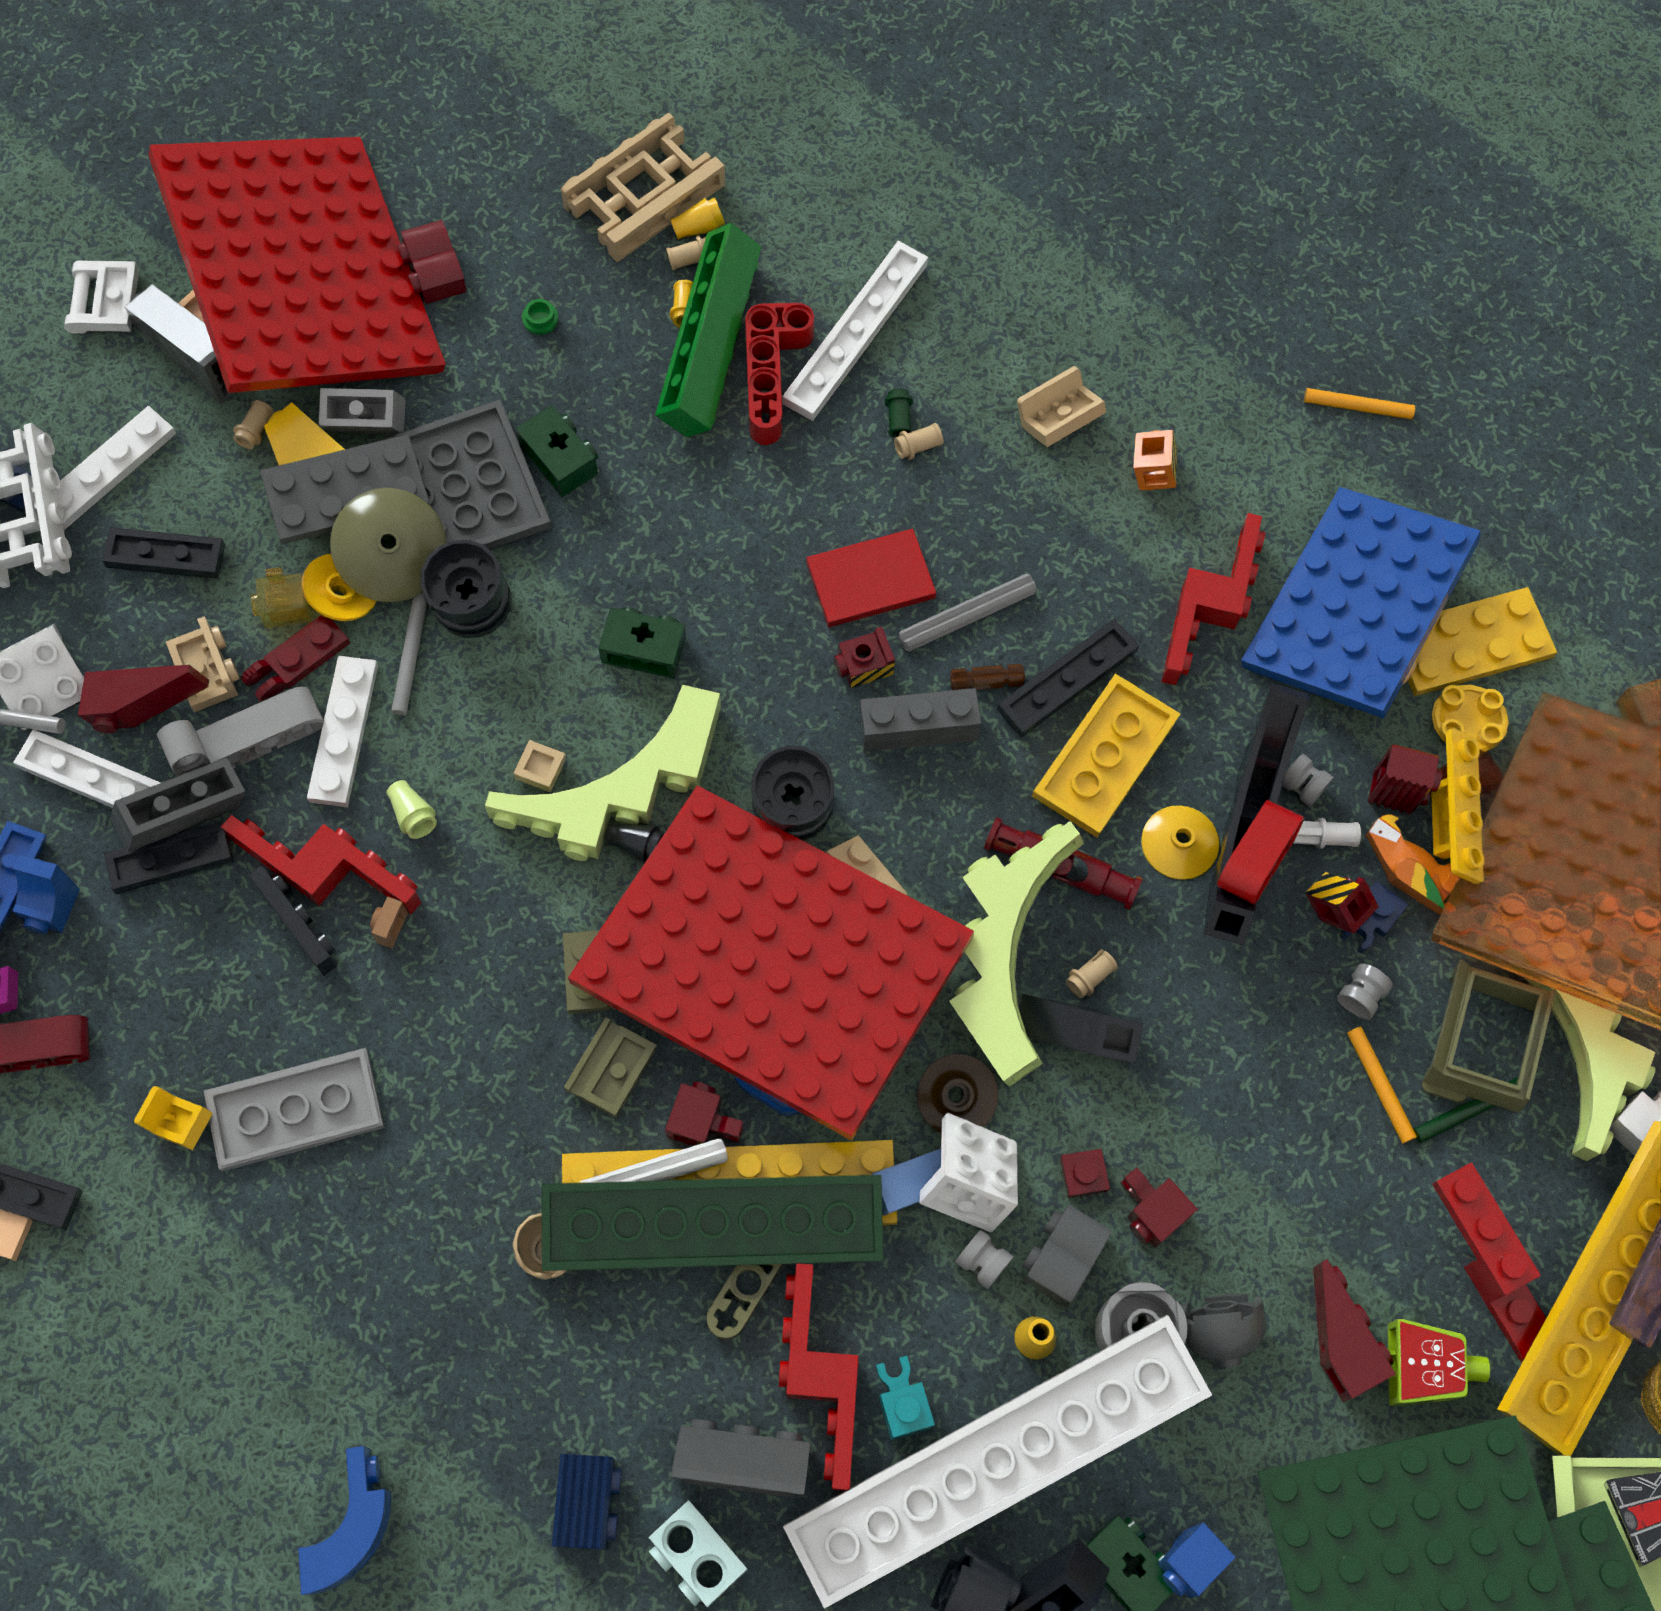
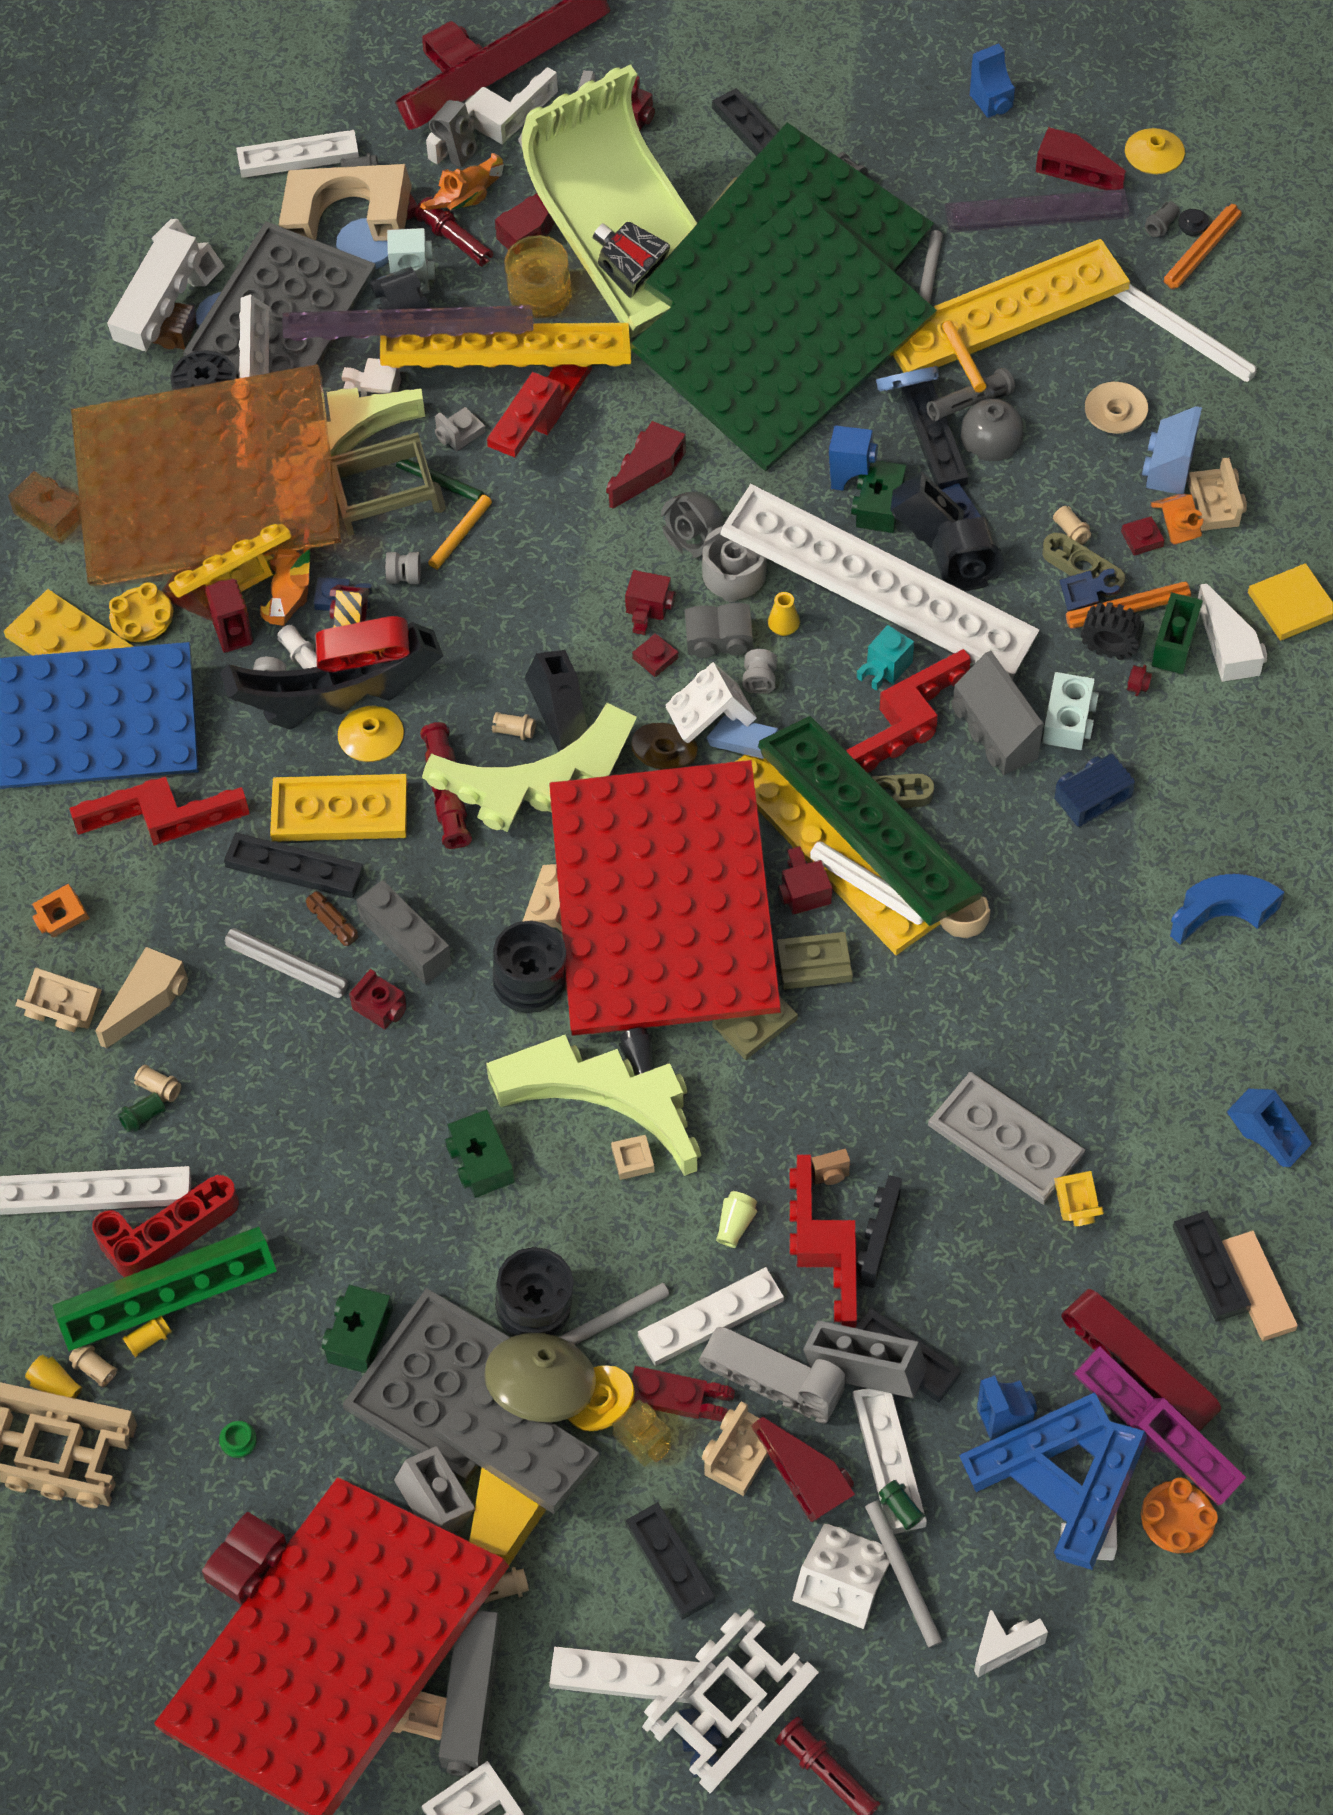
camera: 120 degrees left, 10 degrees down
(37, 744) = (901, 1504): none -> dark green pin
(90, 1361) = (1268, 1122): none -> blue arch
(870, 577) = (304, 1044): red tile -> none
(1021, 485) = (144, 994): none -> tan slope
(1430, 1364) = (627, 412): torso -> none
(1527, 1172) = (458, 428): none -> light grey bracket

